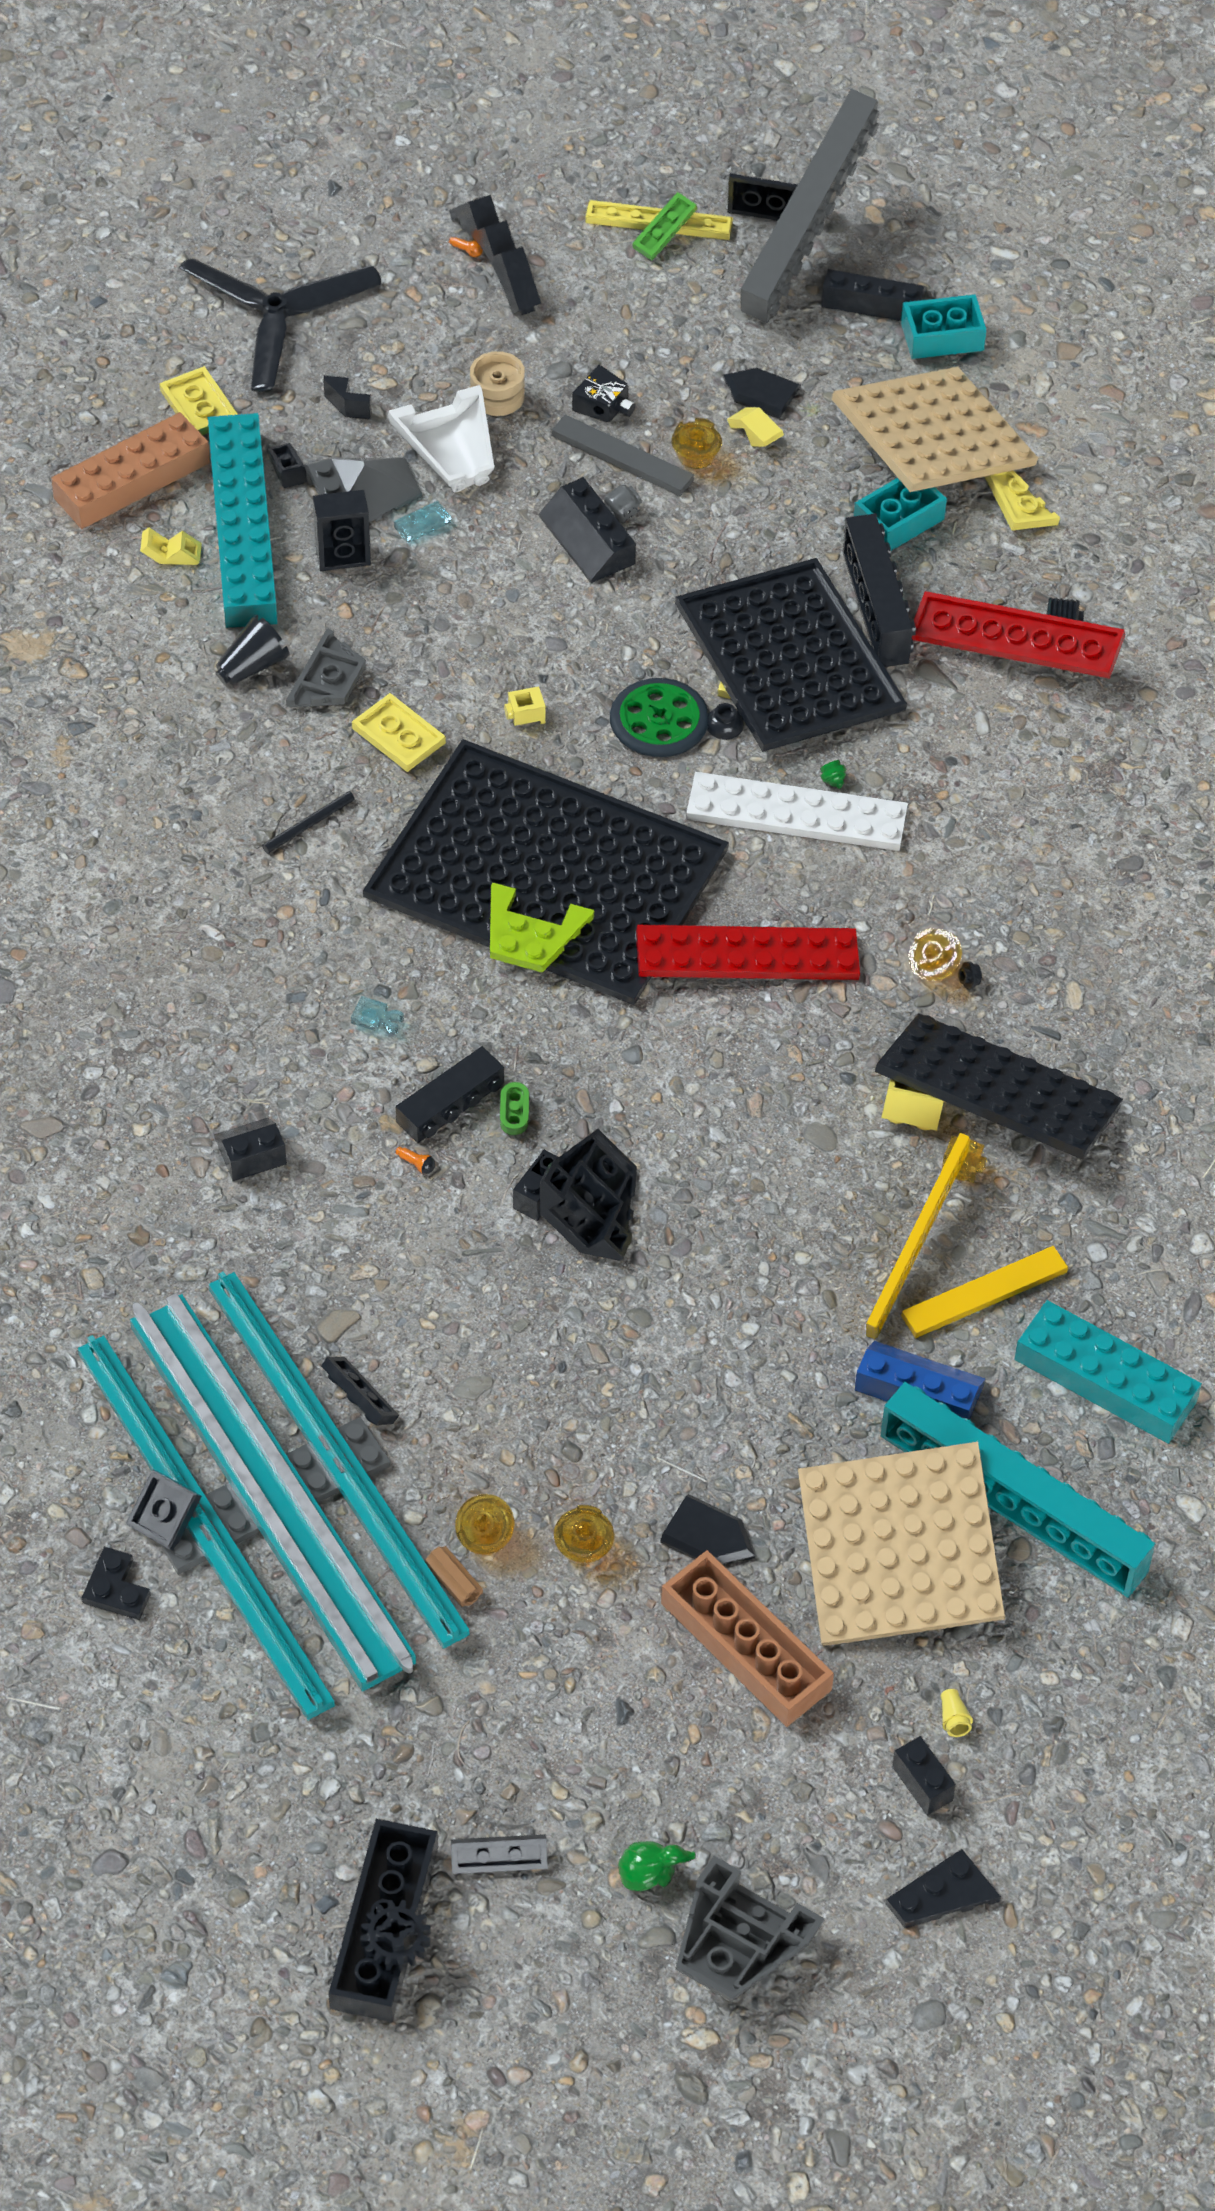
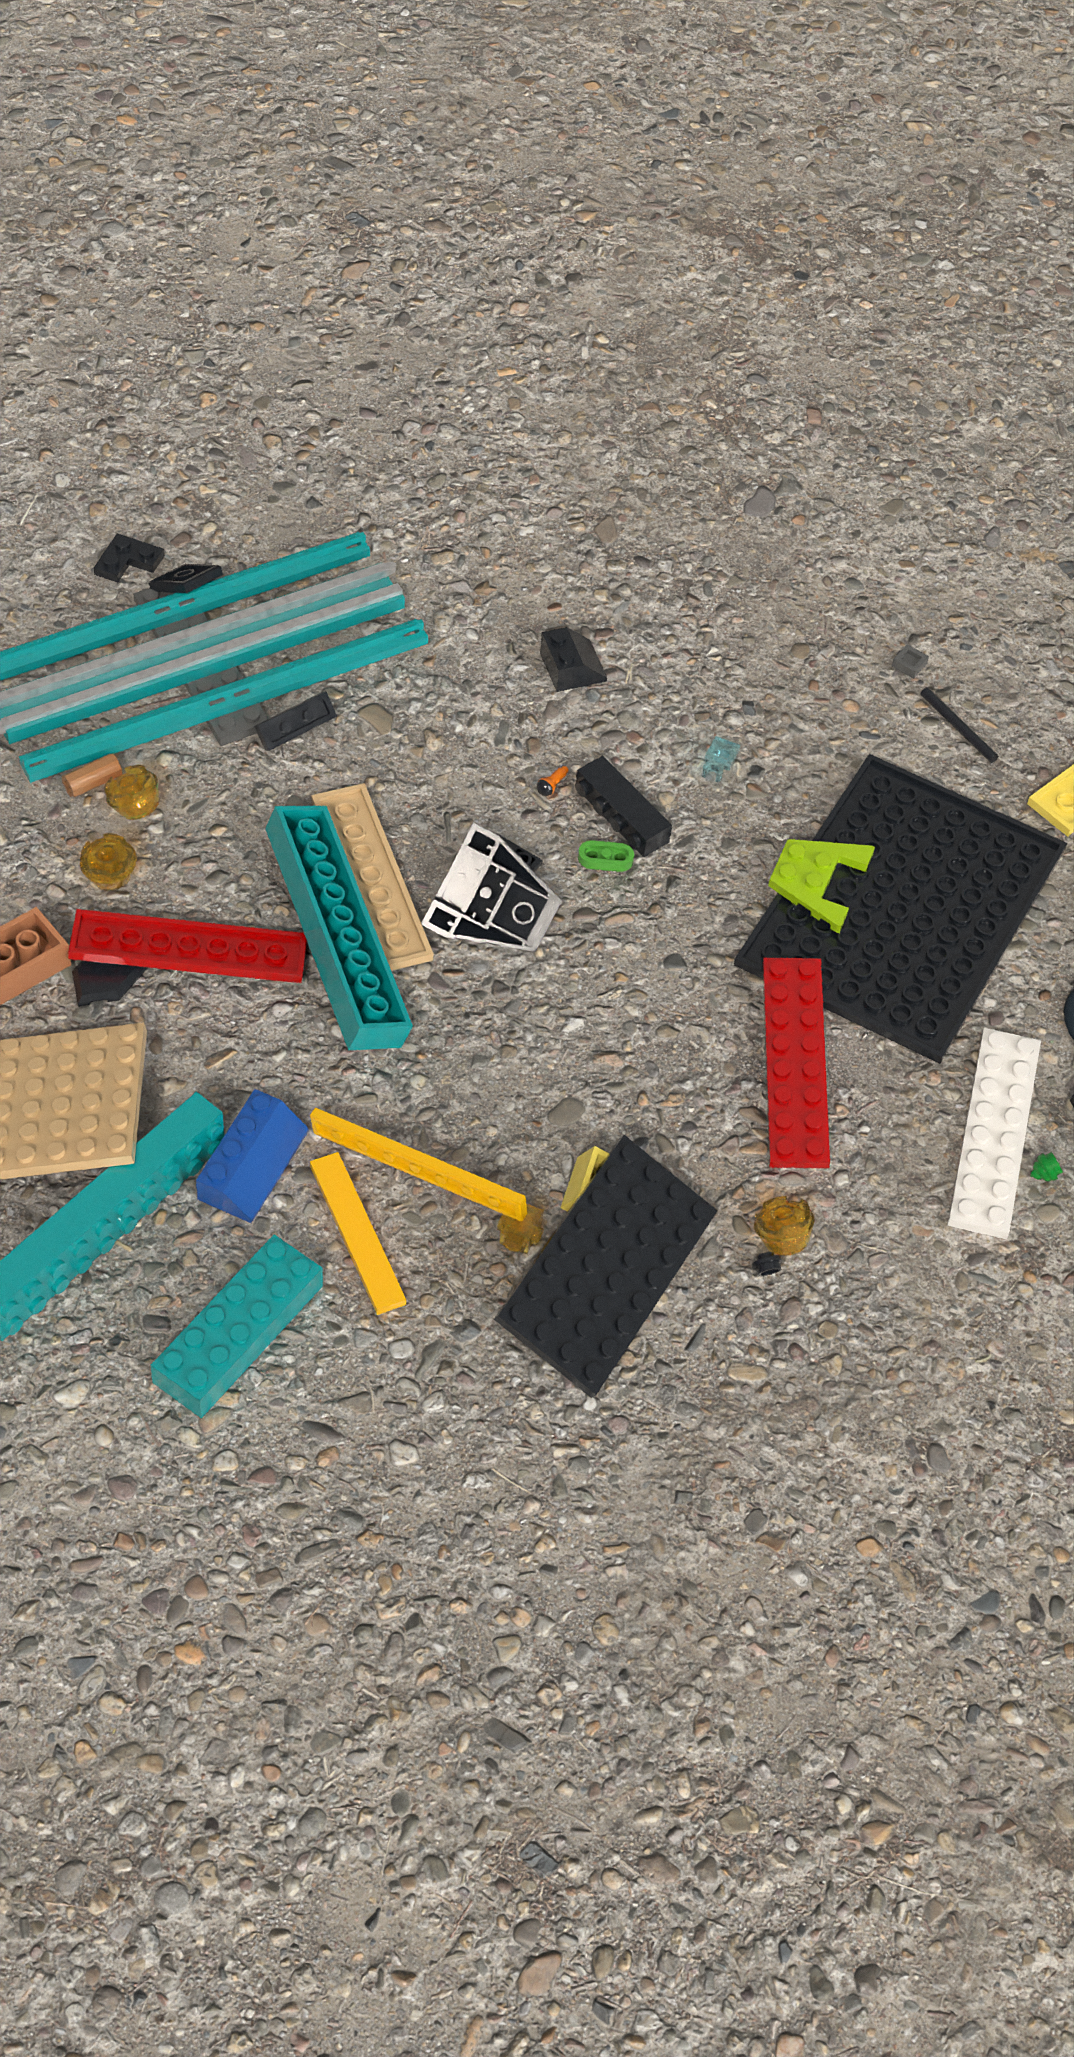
camera: 90 degrees right, 0 degrees up
(229, 856) = (910, 661): none -> dark grey plate
(562, 1308) = (377, 875): none -> tan plate
(642, 1322) = (338, 928): none -> teal brick
(679, 1456) = (187, 946): none -> red plate

